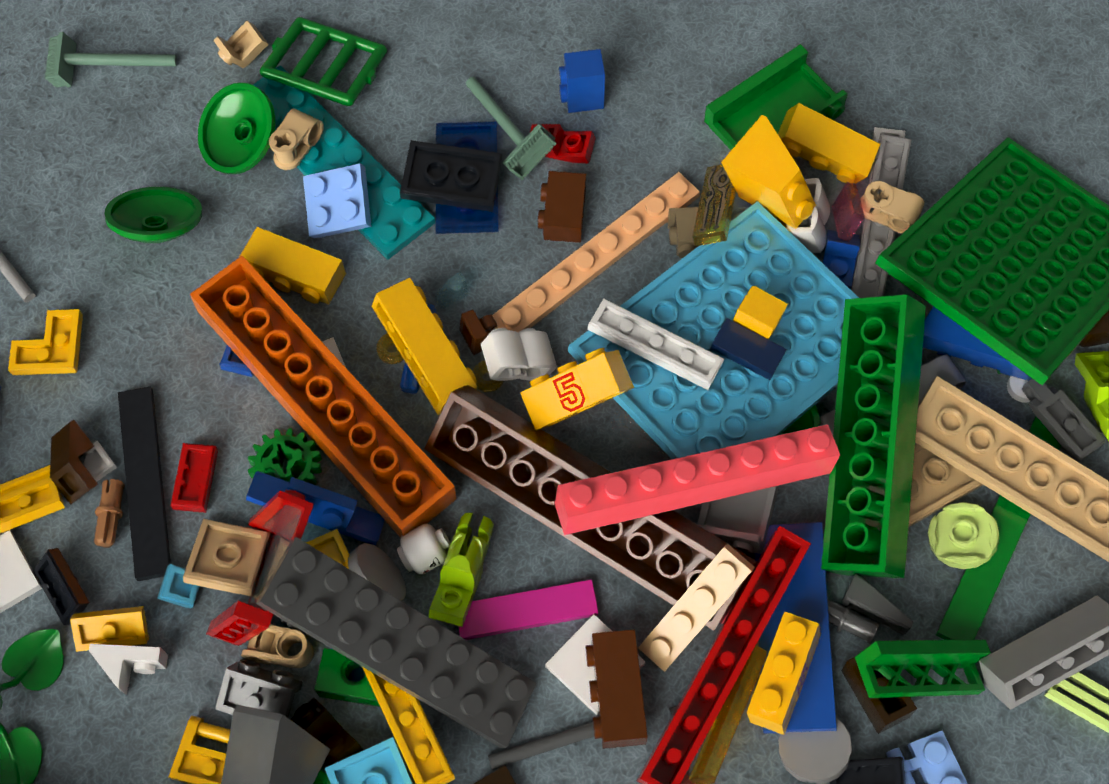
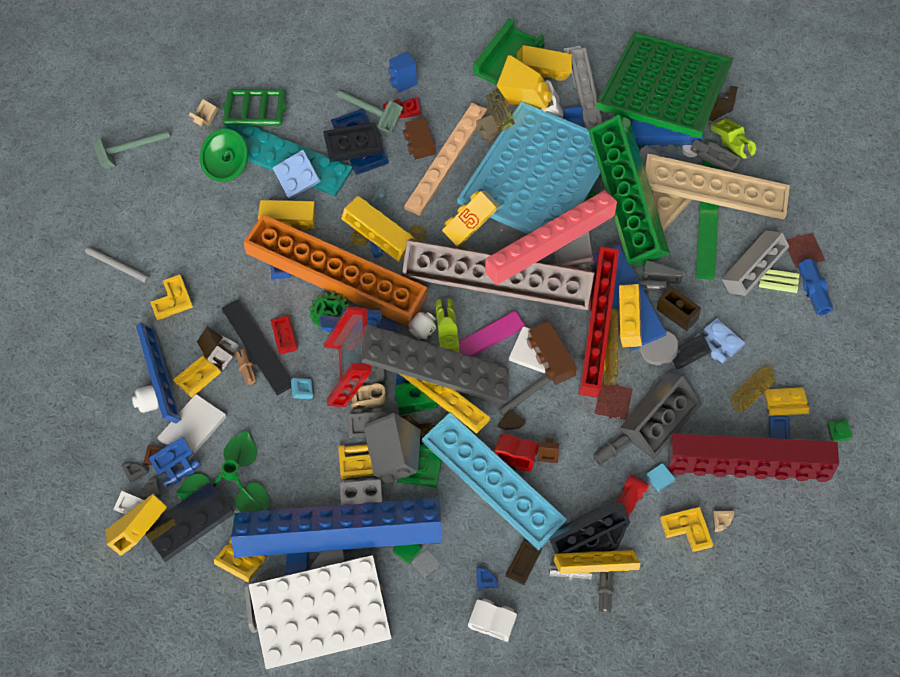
camera: 20 degrees left, 5 degrees down
(60, 585) = (238, 410): black plate -> none
(110, 627) = (274, 420): yellow plate -> none
(119, 659) = (286, 432): white slope -> none
(153, 214) = (199, 213): green dish -> none
(227, 557) = (320, 365): tan tile -> none
(294, 138) = (259, 150): tan piece -> none
(475, 329) = (400, 214): reddish brown tile -> none
(518, 354) = (429, 217): white brick -> none
(655, 344) = (501, 183): white tile -> none
(696, 607) = (574, 300): plate -> none
(748, 349) = (548, 171): dark blue tile -> none
(760, 312) = (547, 152): yellow panel -> none
(847, 212) = (569, 92): clear pink tile -> none
(894, 206) = (591, 82): tan piece -> none
(917, 659) = (692, 285): green fence -> none
(963, 535) = (690, 227): yellowish green tile -> none

